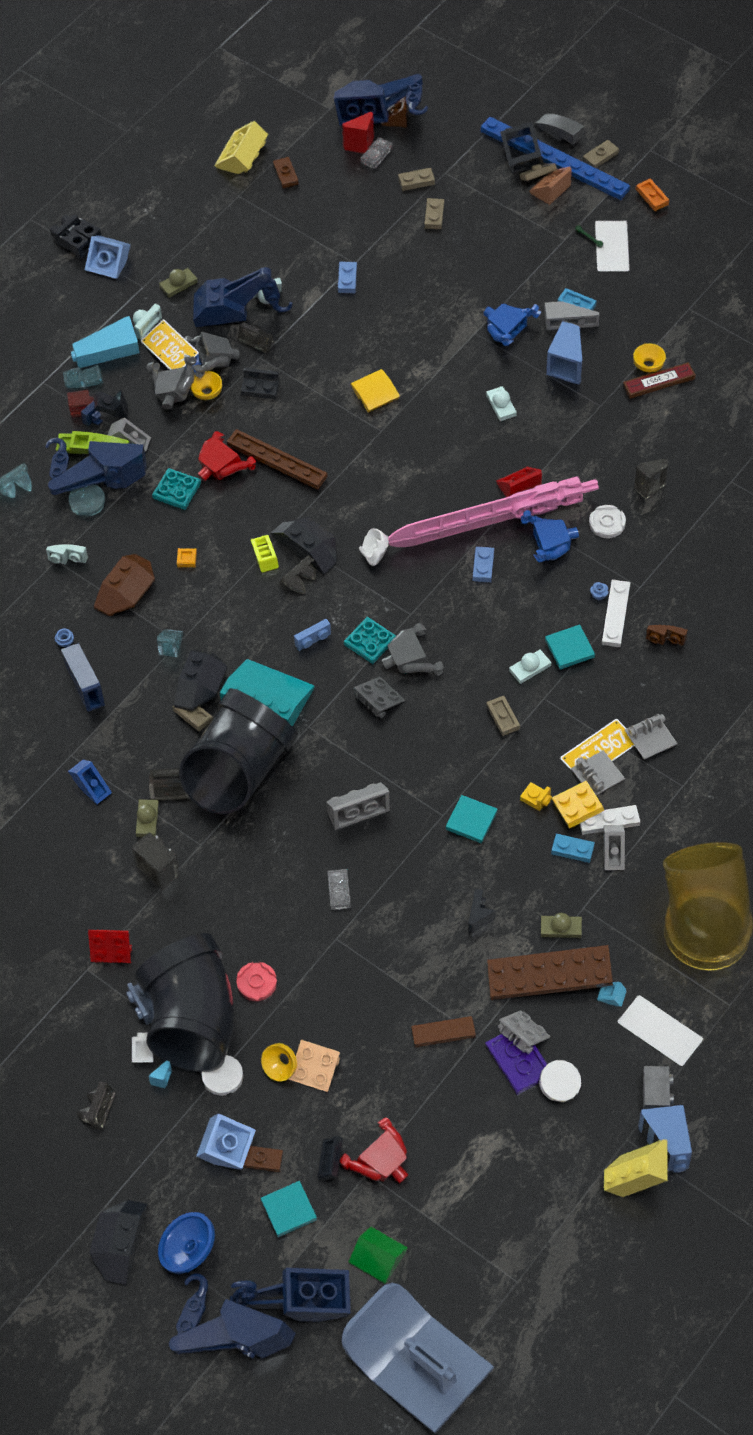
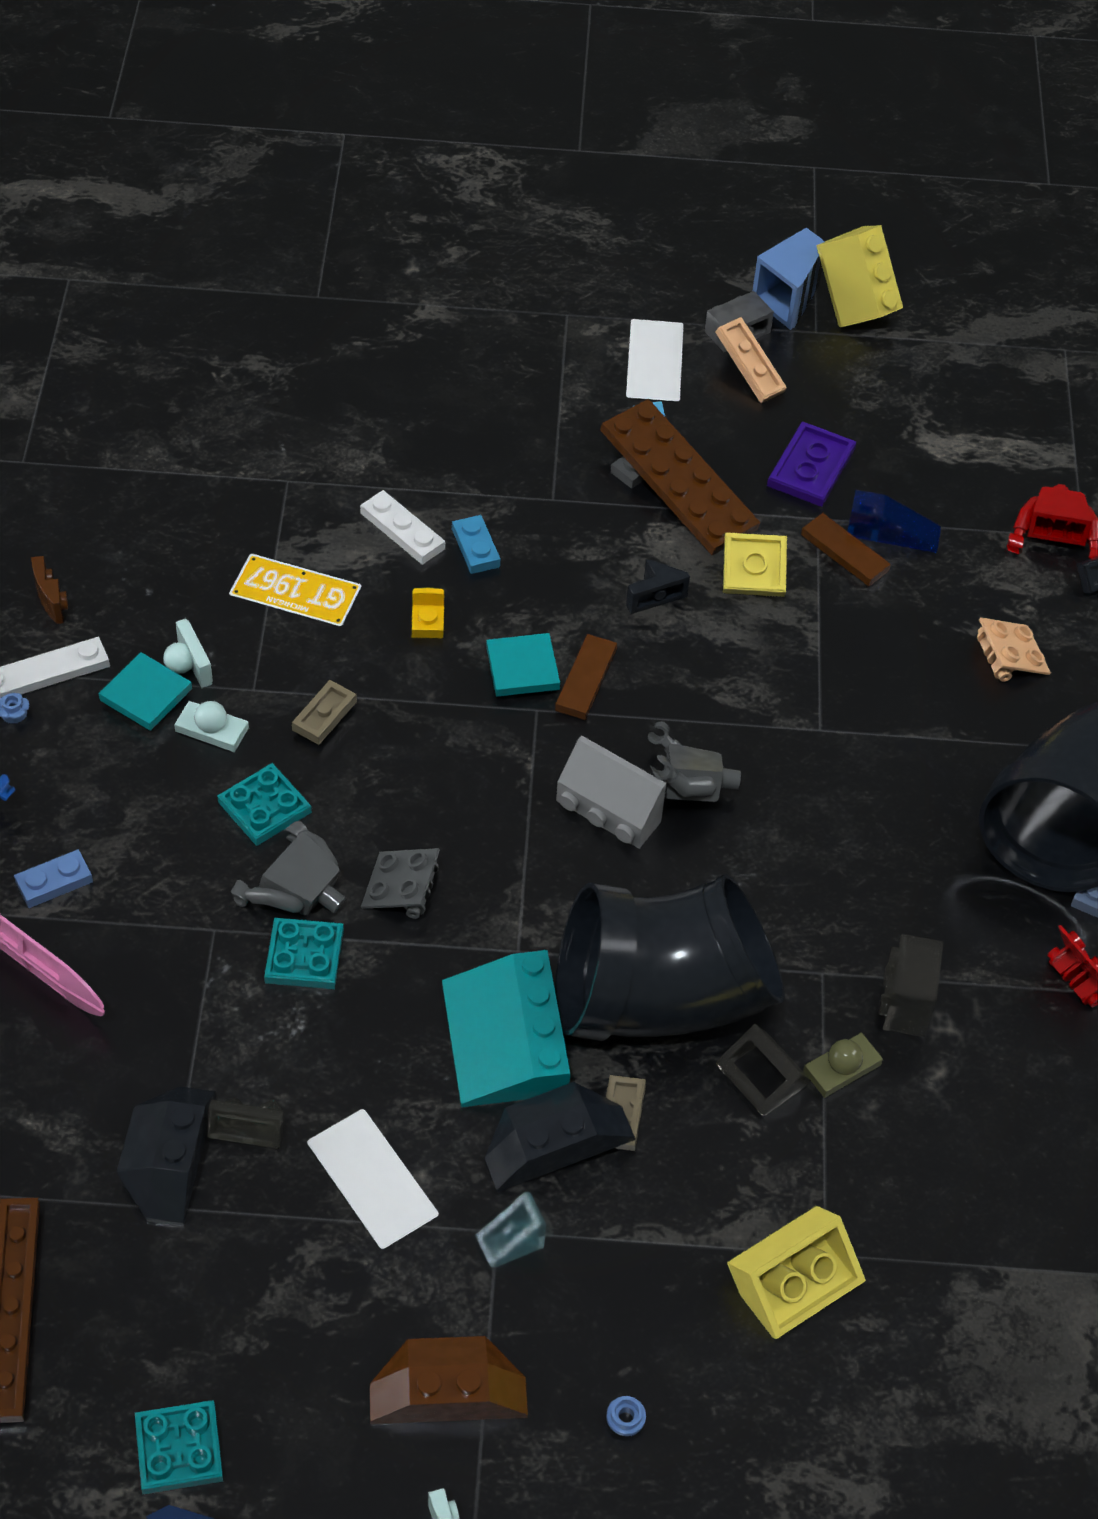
camera: 130 degrees left, 5 degrees down
(70, 732) = (797, 1270): none -> light yellow slope
(83, 677) = (685, 1315): slope -> none
(90, 781) = (854, 1182): blue slope -> none
(186, 557) = (322, 1327): light orange tile -> none
(220, 460) = (72, 1403): red torso -> none
(239, 610) = (372, 1178): none -> white sticker
(256, 981) = (960, 779): coral tile -> none
(265, 554) = (229, 1187): neon yellow slope -> none
(272, 1064) = (1047, 678): yellow piece -> none
(312, 634) = (355, 1028): medium blue plate -> none
(339, 889) = (754, 758): clear plate -> none
(344, 846) = (691, 771): none -> dark grey torso
(374, 546) = (121, 1032): white hair -> none
(441, 1065) = (889, 522): none -> clear blue slope
(445, 847) = (586, 677): none -> reddish brown tile
(461, 972) = (755, 564): none -> light yellow plate
(466, 666) = (264, 804): none -> teal tile
(524, 1029) = (779, 463): light grey hinge -> none
(560, 1081) = (808, 407): white tile -> none
(561, 926) = (601, 502): olive tile -> none
(577, 804) = (410, 557): yellow plate -> none
(580, 675) = (188, 655): none -> light aqua tile
(598, 772) = (340, 567): light grey hinge -> none
(614, 847) = (441, 496): light grey slope -> none
(616, 1070) = (751, 360): none -> light nougat tile
(651, 736) = (235, 538): light grey hinge -> none
(708, 906) = (464, 292): clear yellow cylinder -> none

